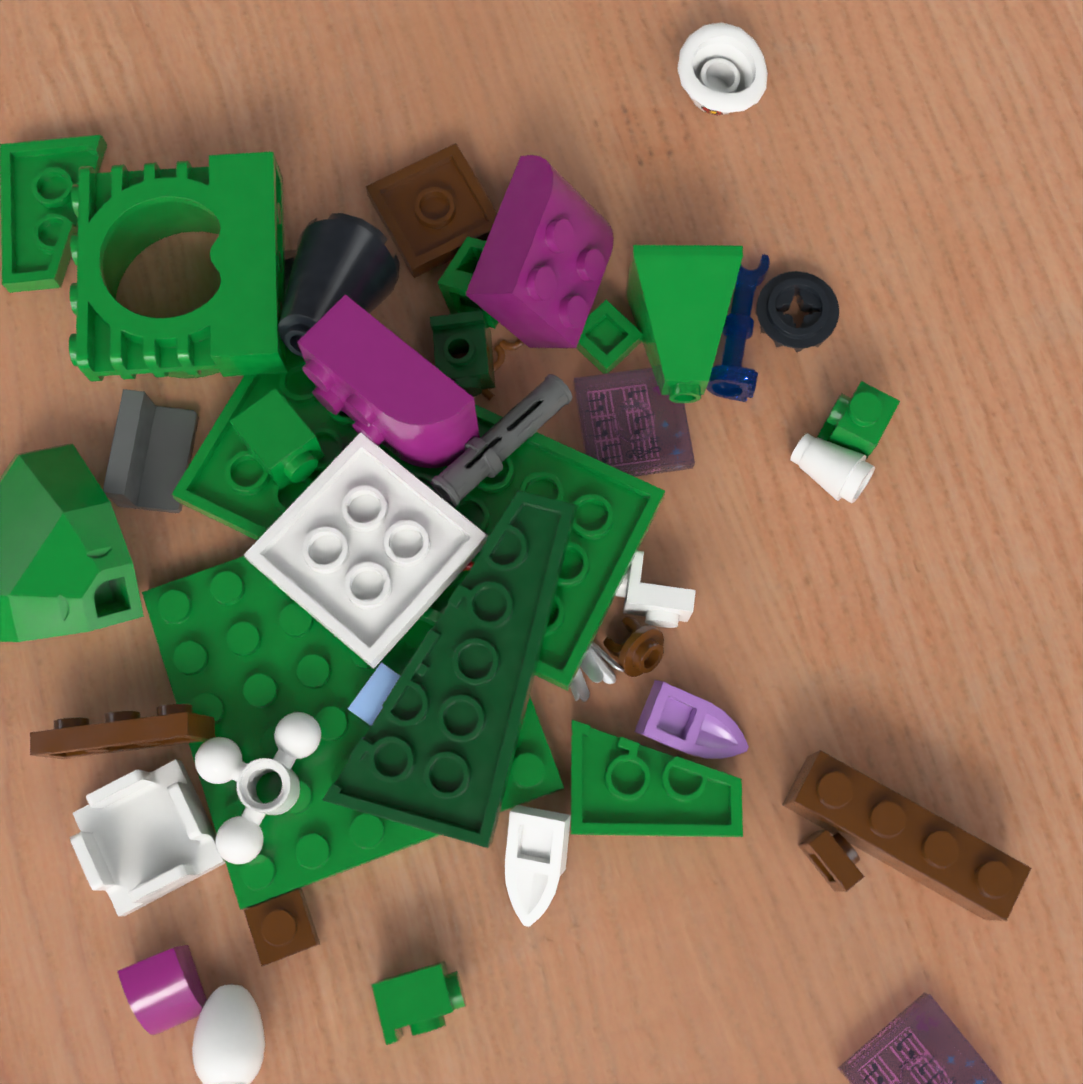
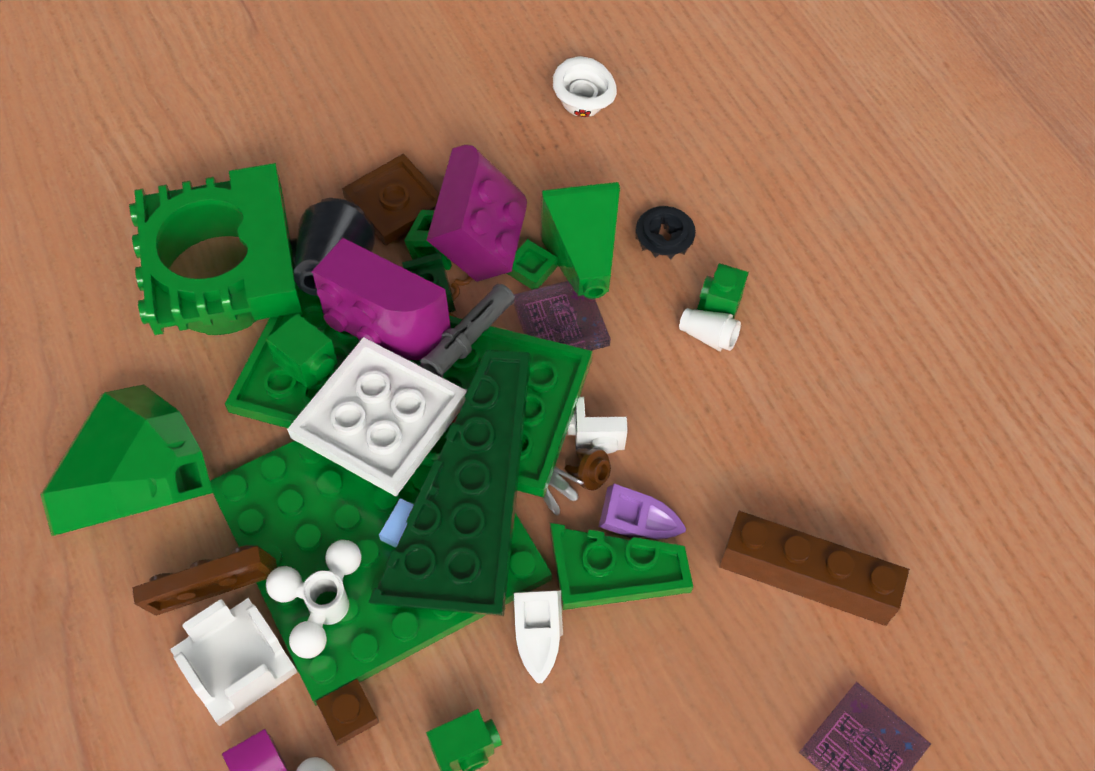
camera: 10 degrees left, 15 degrees down
(39, 207) = (102, 233): green wing -> none
(149, 453) = (203, 385): dark grey panel -> none
(730, 378) = (627, 280): clear blue piece -> none
(833, 859) = (763, 594): reddish brown plate -> none

